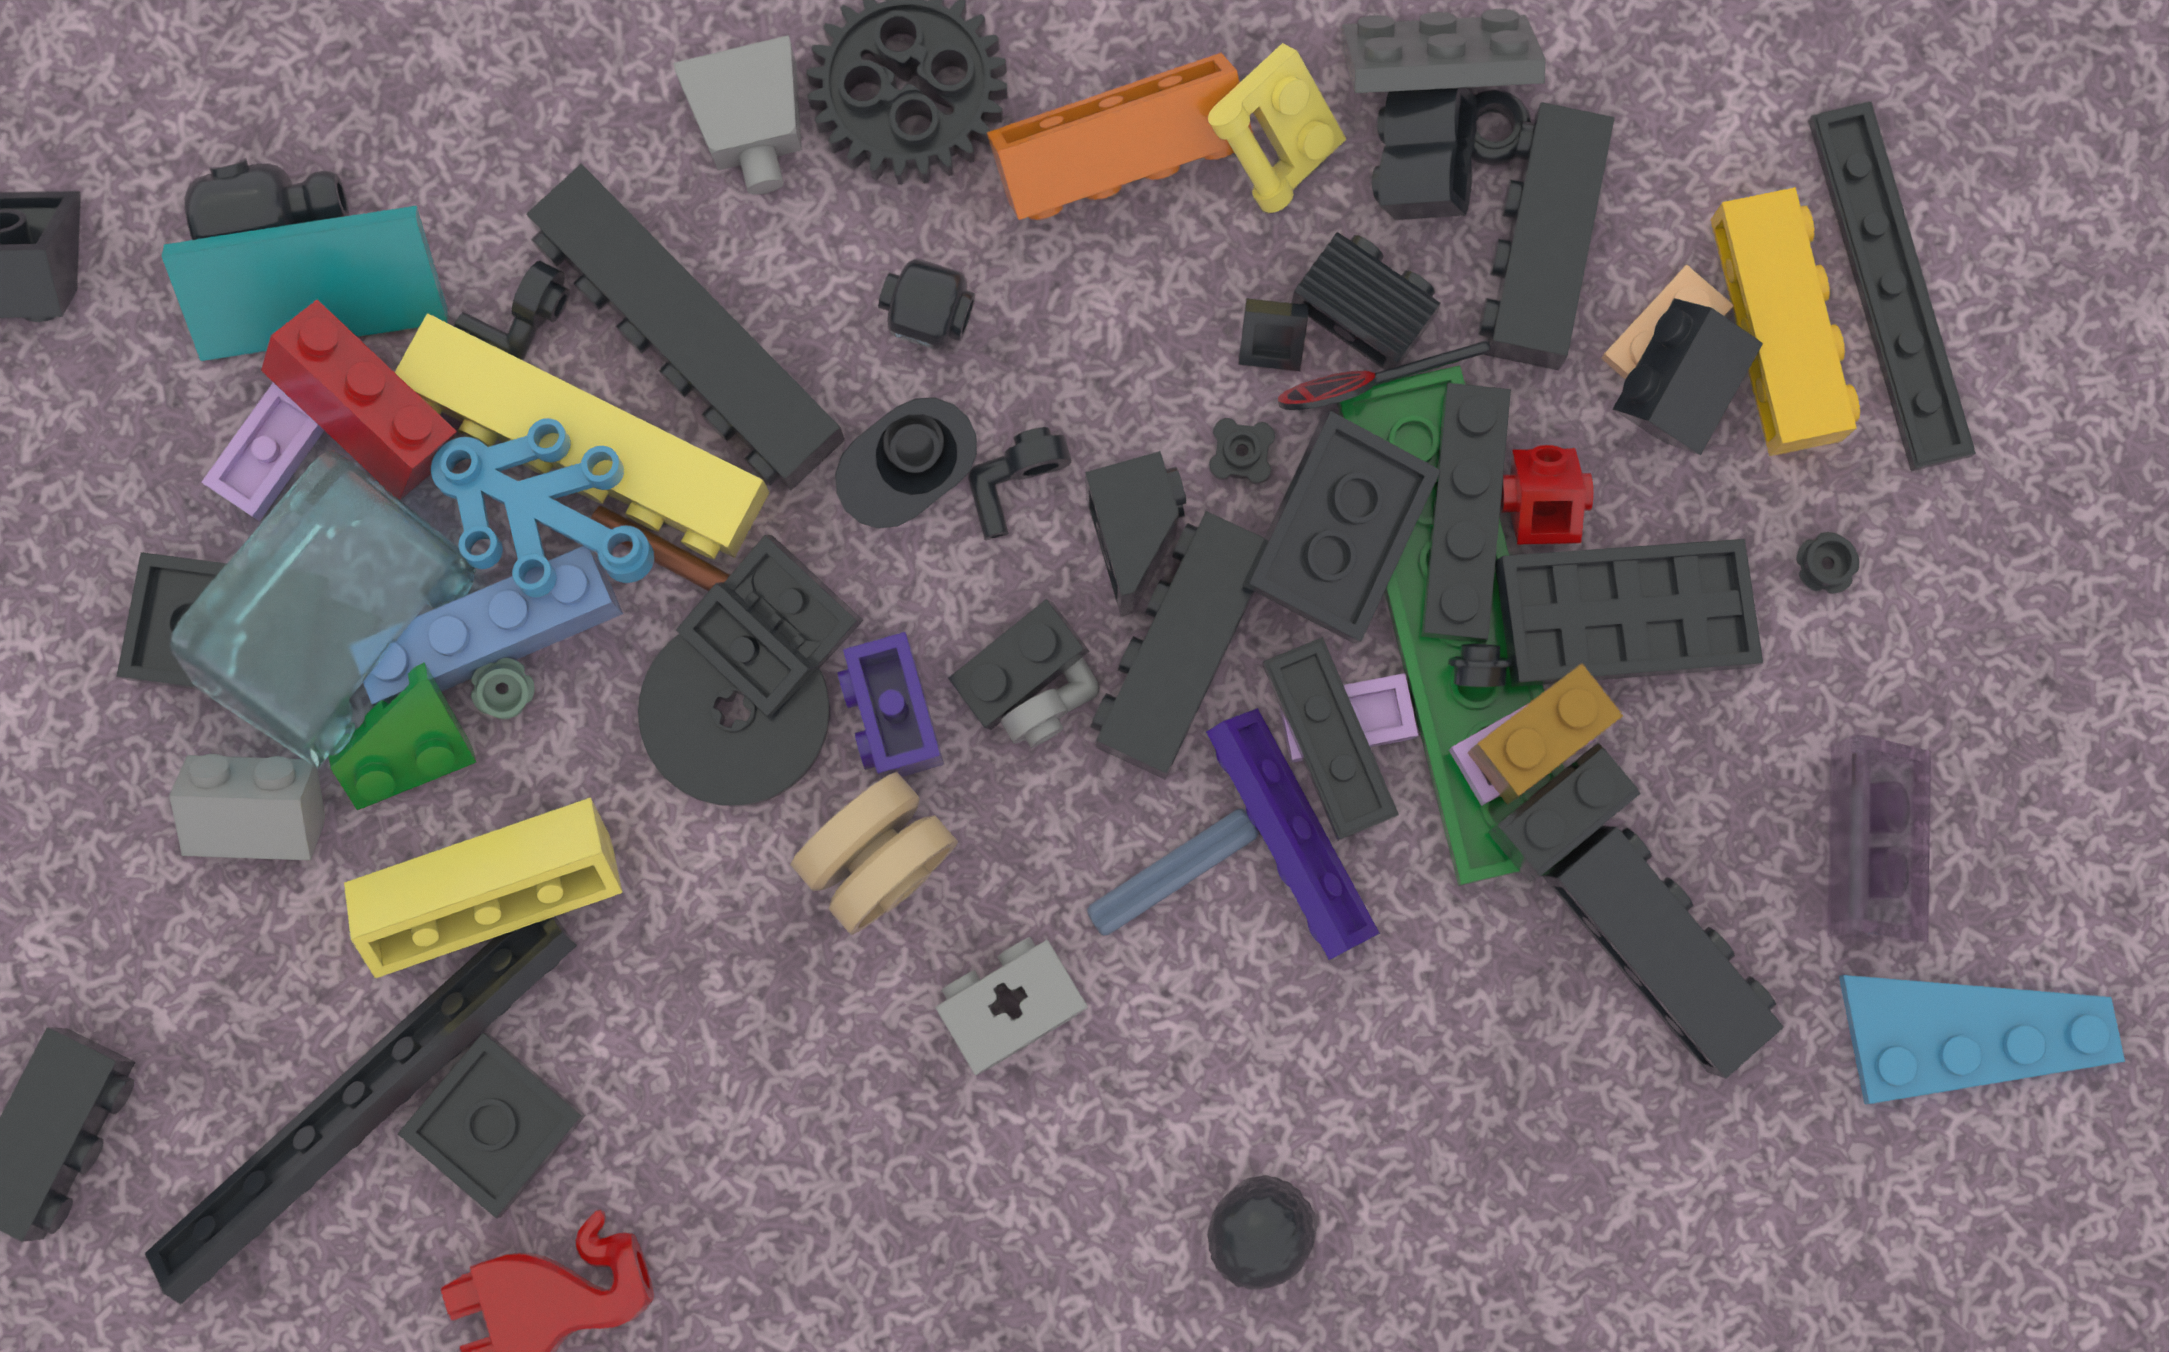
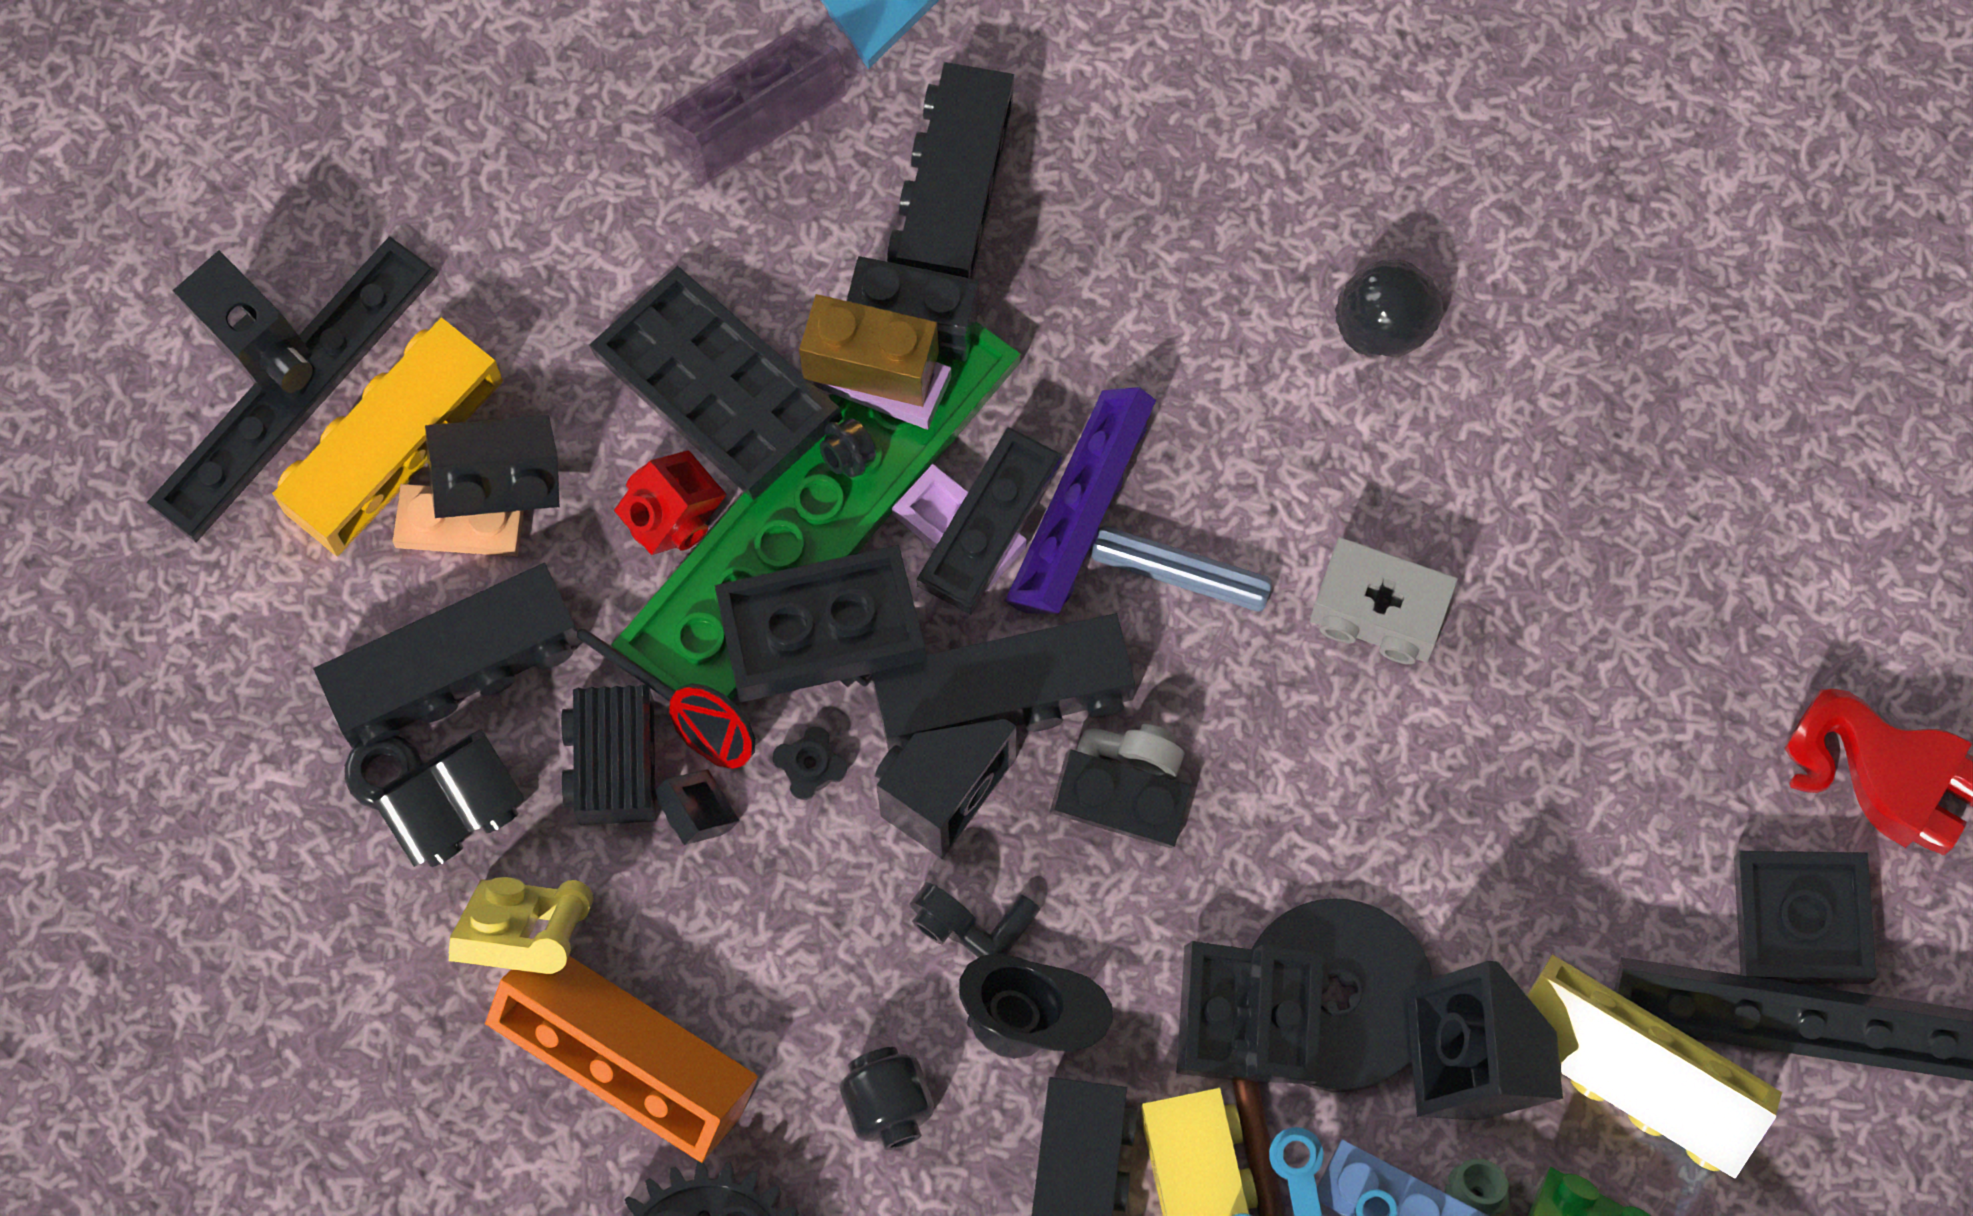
camera: 130 degrees left, 10 degrees down
(587, 760) = (1480, 1046): none -> black slope
(867, 845) = (1361, 777): tan wheel -> none
(892, 705) = (1236, 858): dark purple brick -> none
(1442, 52) = (355, 843): dark grey plate -> none
(1466, 513) = (730, 549): black plate -> none
(1839, 551) = (555, 265): black plate -> none
(1965, 263) = (261, 341): none -> black torso

